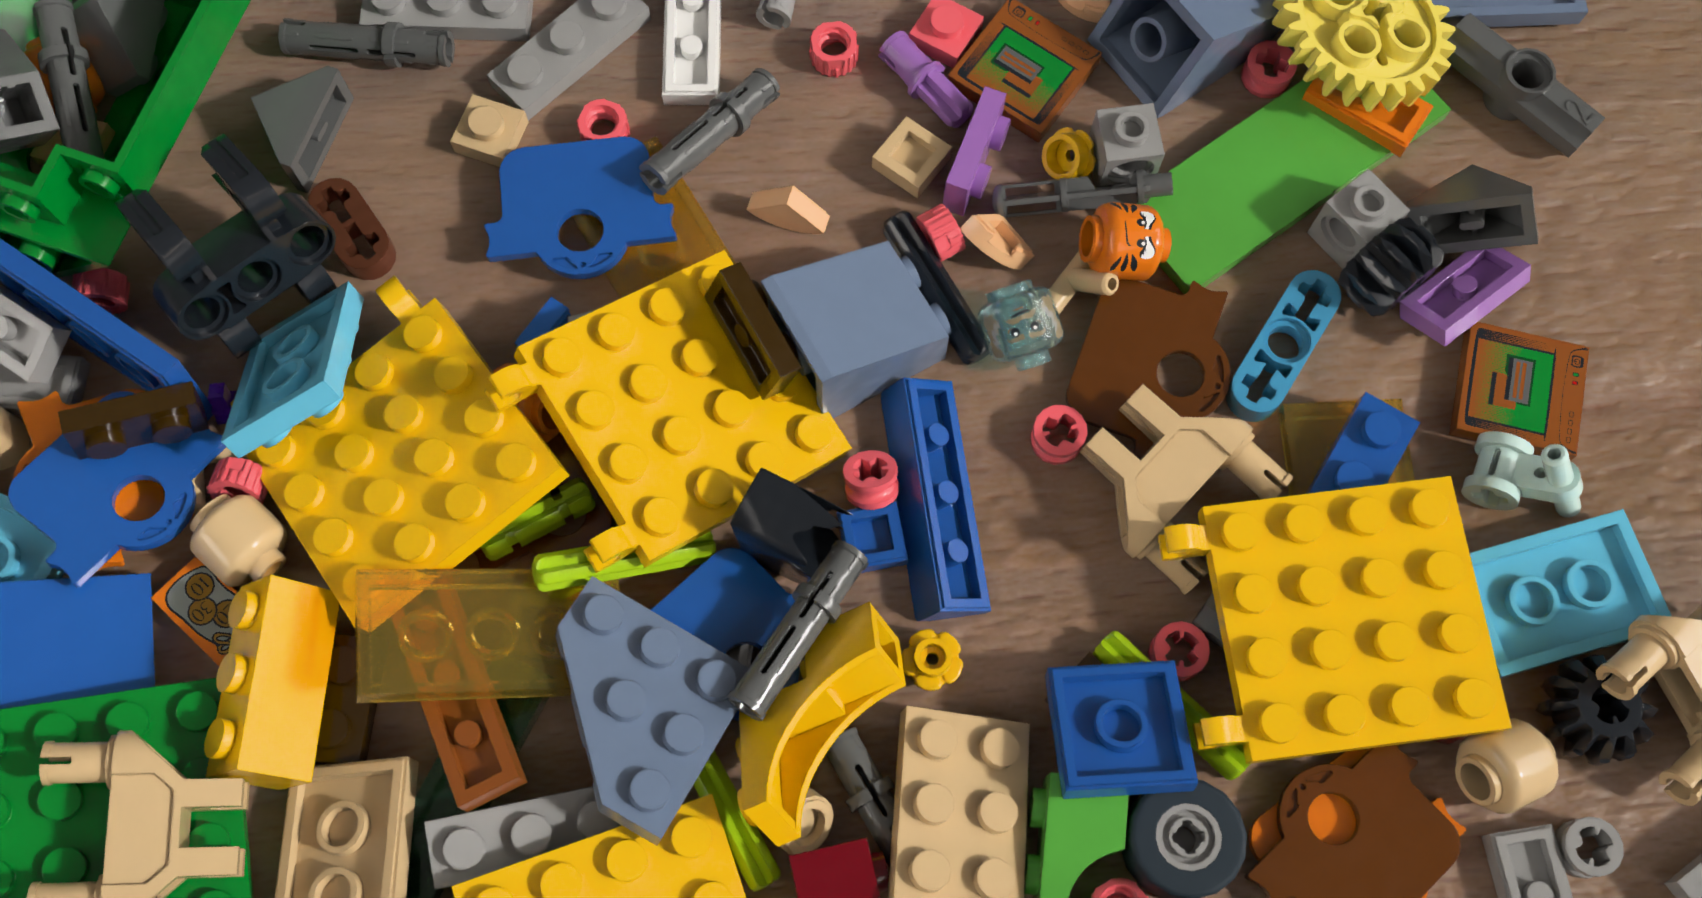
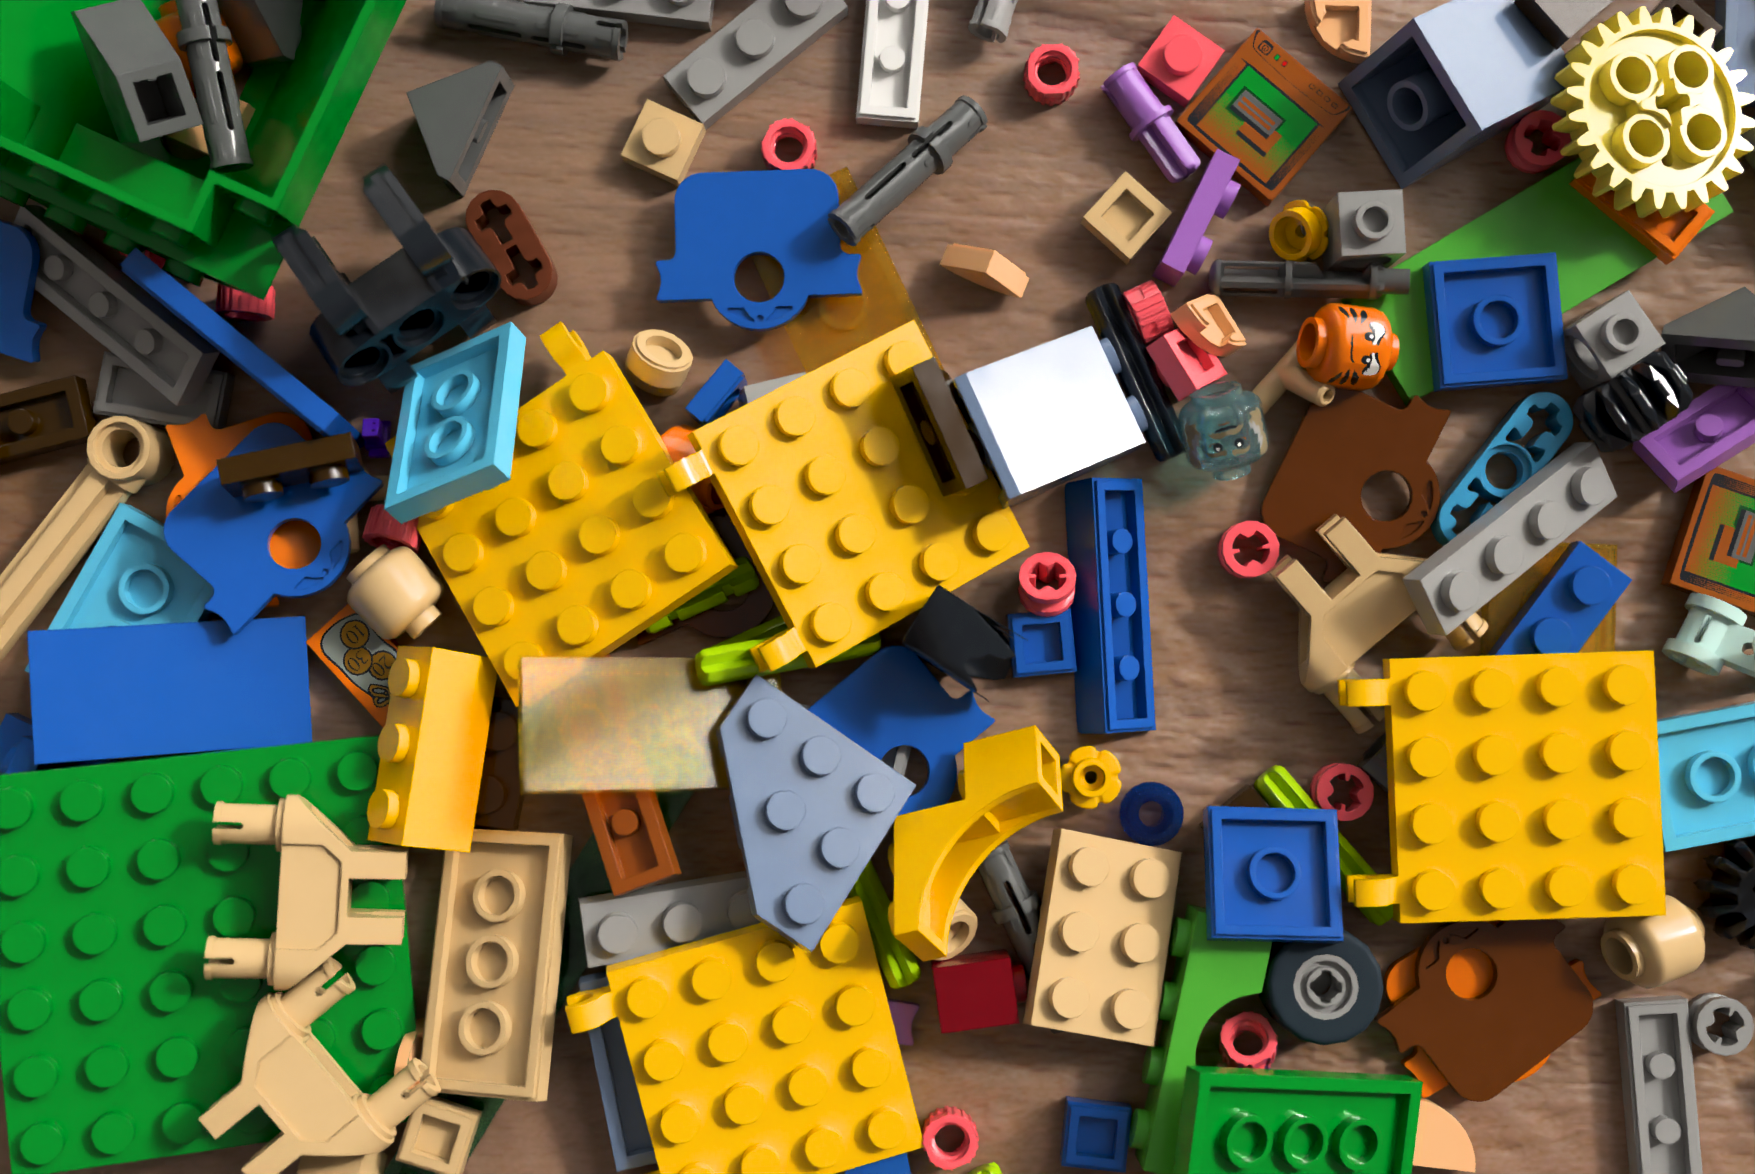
camera: 10 degrees right, 15 degrees up
(489, 310) = (658, 362): none -> tan tile
(813, 608) = (1010, 688): dark grey pin -> none
(975, 271) = (1184, 364): none -> coral plate
(1003, 672) = (1169, 822): none -> clear blue plate
(1255, 214) = (1494, 322): none -> blue tile
(1298, 395) = (1509, 538): none -> light grey plate

